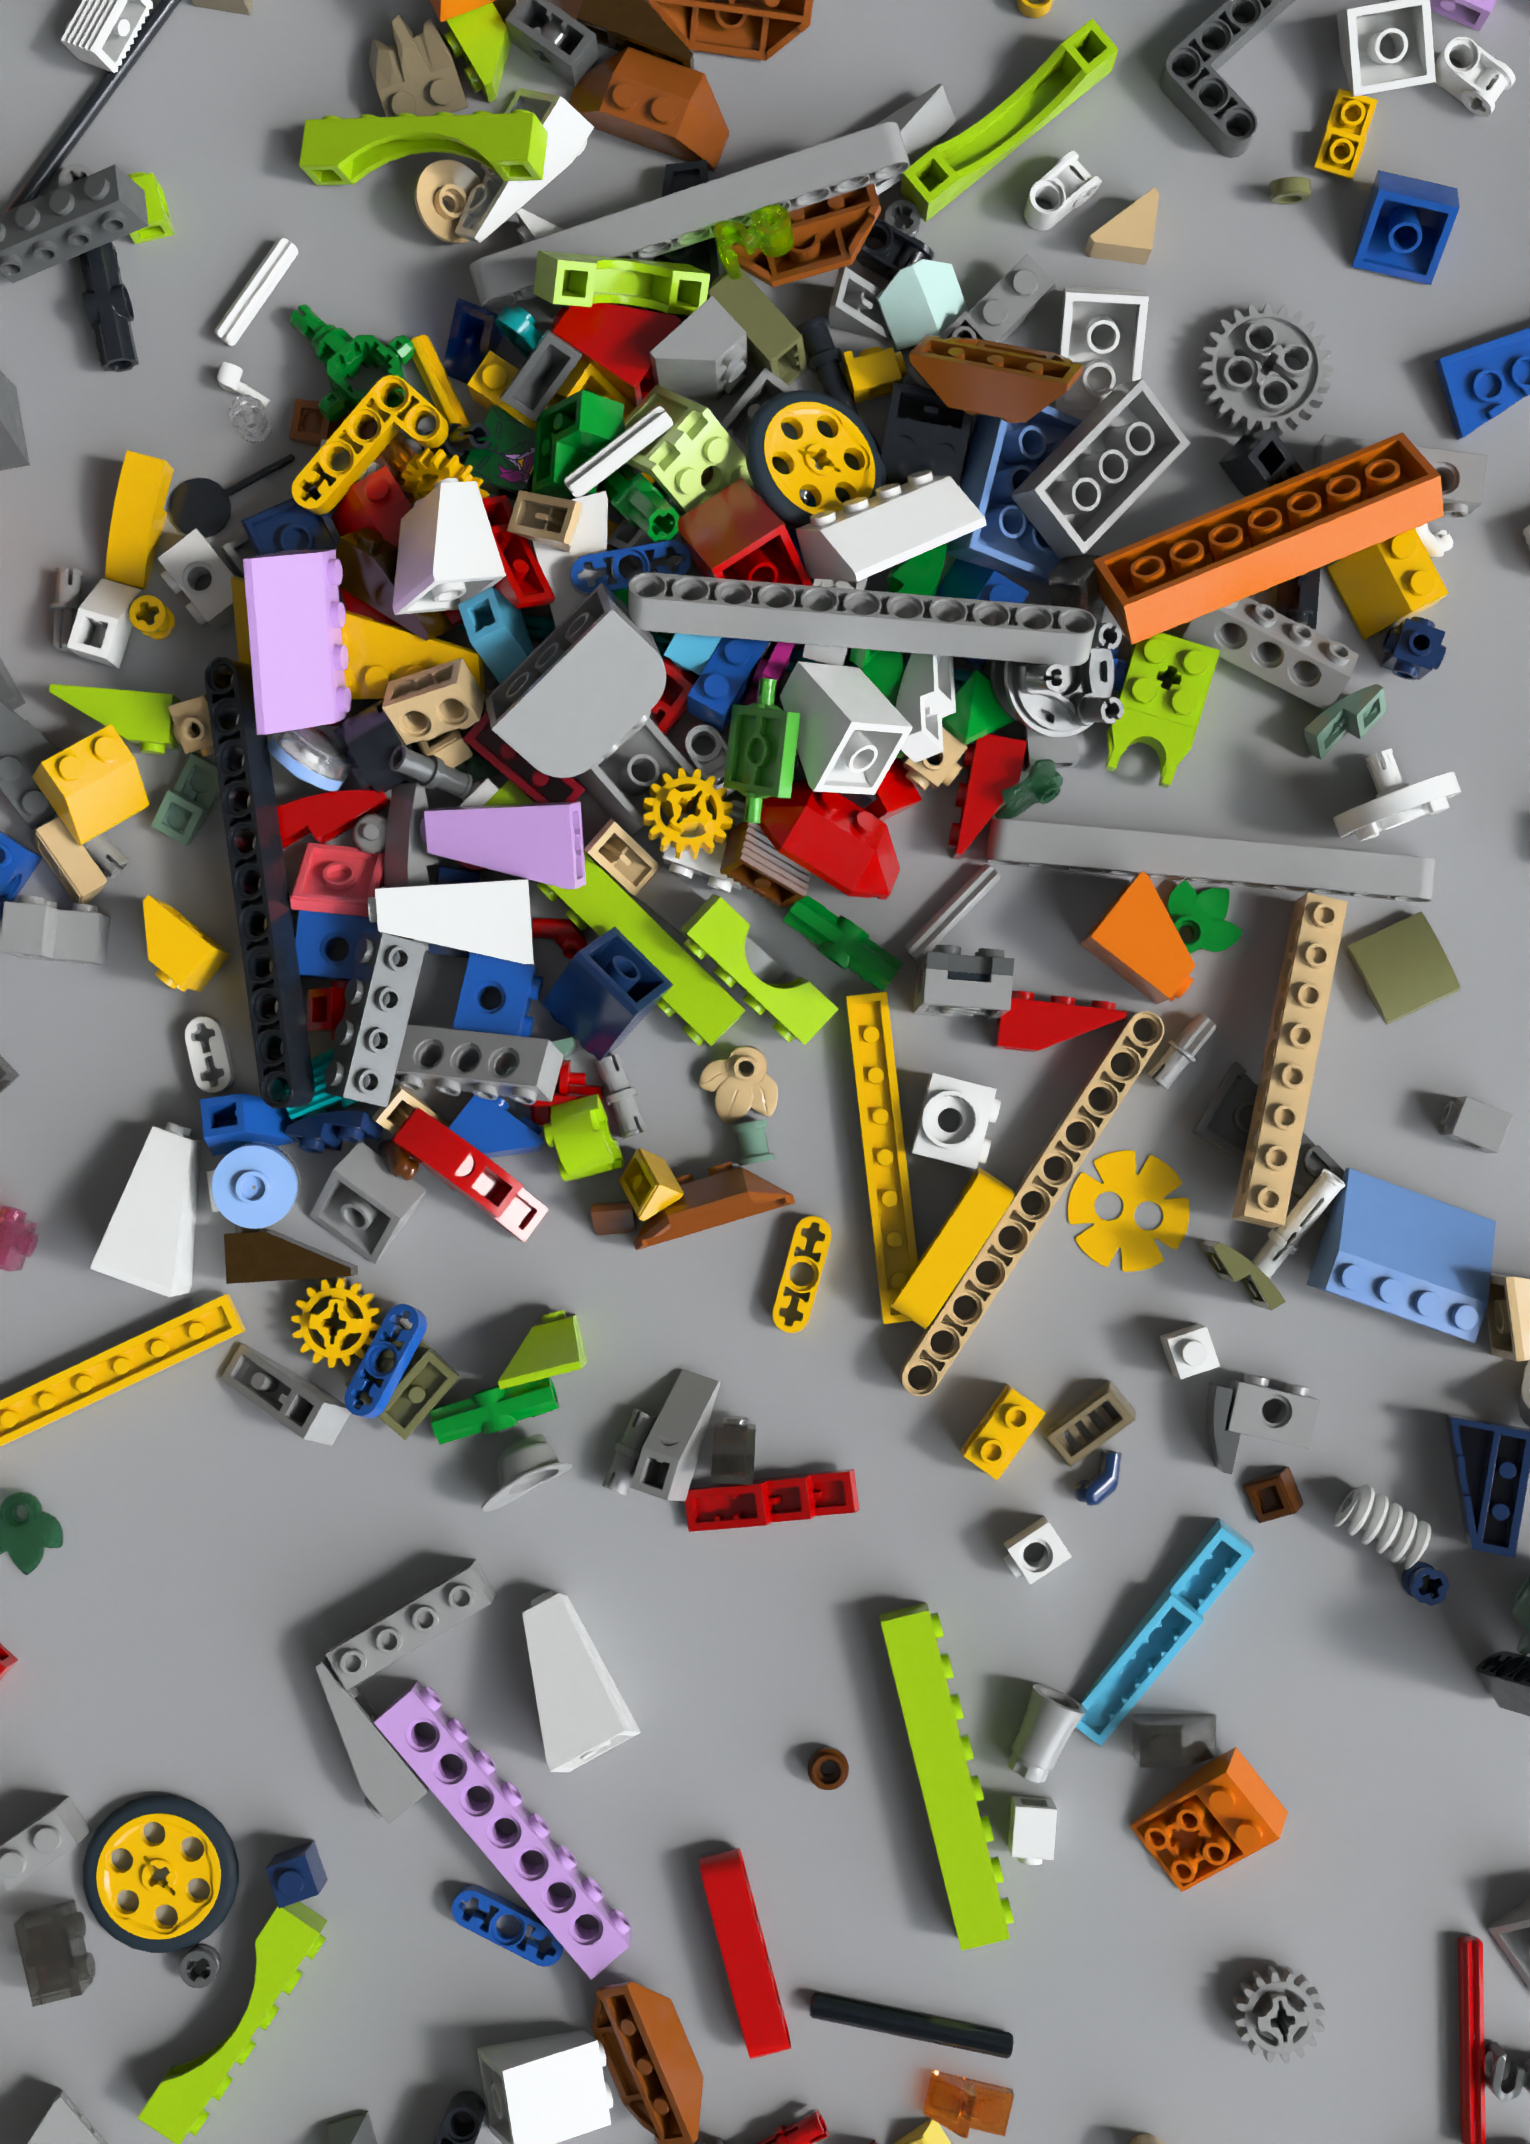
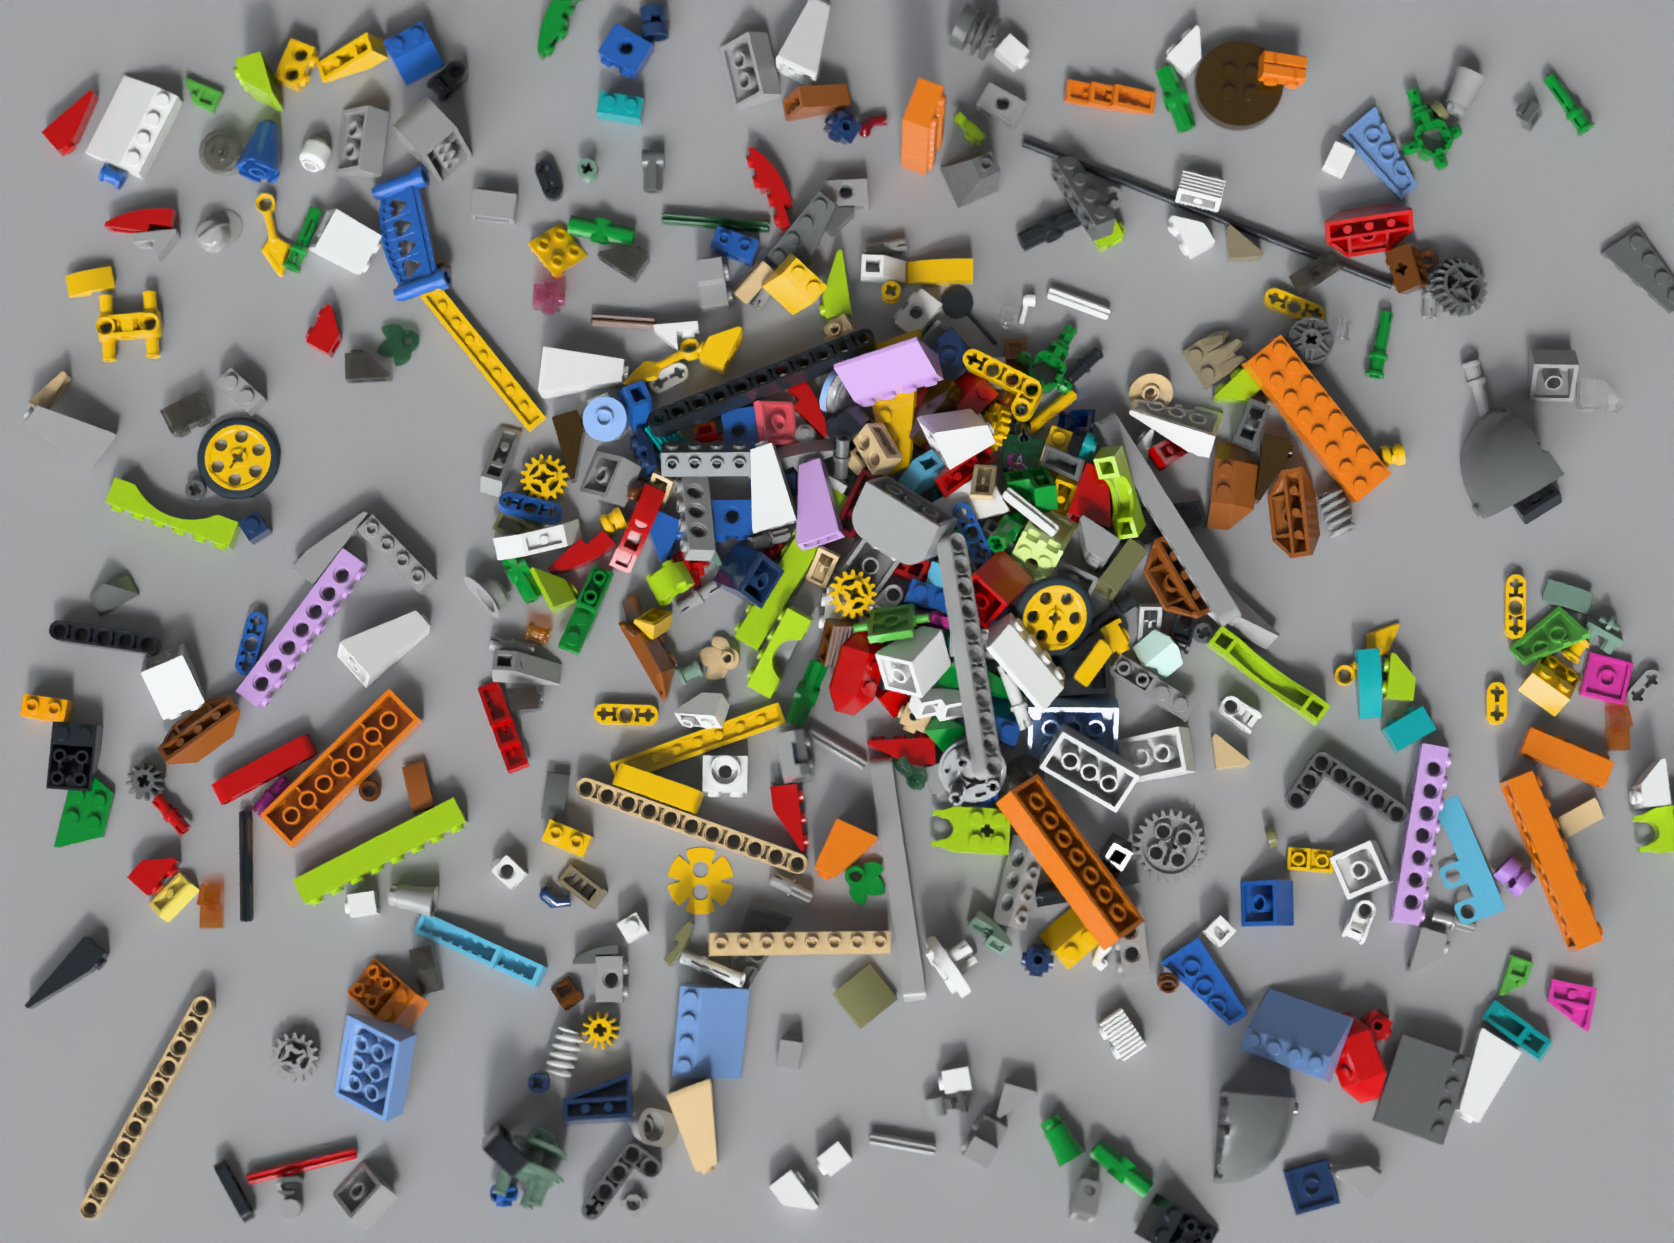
camera: 80 degrees right, 5 degrees down
(52, 1607) = (364, 369): none -> clear smoke slope
(84, 1112) = (623, 321): none -> axle
(123, 1031) = (670, 331): none -> white slope
(183, 60) = (1192, 235): none -> white slope
(186, 1082) = (650, 370): none -> yellow piece
(190, 801) = (799, 335): sand green slope -> none
(350, 148) = (1163, 333): lime arch -> none
(370, 306) = (1083, 365): none -> black axle
(445, 1216) = (612, 520): none -> yellow wheel
(450, 1361) = (538, 540): none -> white slope
(494, 1285) = (582, 554): none -> red slope
(548, 942) = (768, 539): none -> light grey axle
(567, 200) = (1165, 454): none -> red slope
(596, 1302) = (586, 610): none -> green slope
(618, 1398) = (538, 633): none -> clear orange bush
(770, 238) = (1168, 561): clear neon green leg -> none
(779, 1815) = (341, 769): none -> orange brick
(796, 1950) = (271, 795): none -> magenta pin
(830, 1132) = (704, 711): none -> white slope
(844, 1680) = (418, 787): none -> dark orange slope
(916, 414) = (1093, 663): none -> yellow slope
(919, 1435) = (555, 796): none -> dark grey slope
(946, 565) = (1016, 700): none -> white pin
(993, 376) = (1121, 696): dark orange wedge -> none
(1336, 1875) = (375, 1066): none -> medium blue slope
(1349, 1437) = (596, 1036): none -> yellow gear
(1439, 318) = (1219, 931): none -> white brick
(1502, 433) = (1168, 982): none -> reddish brown plate

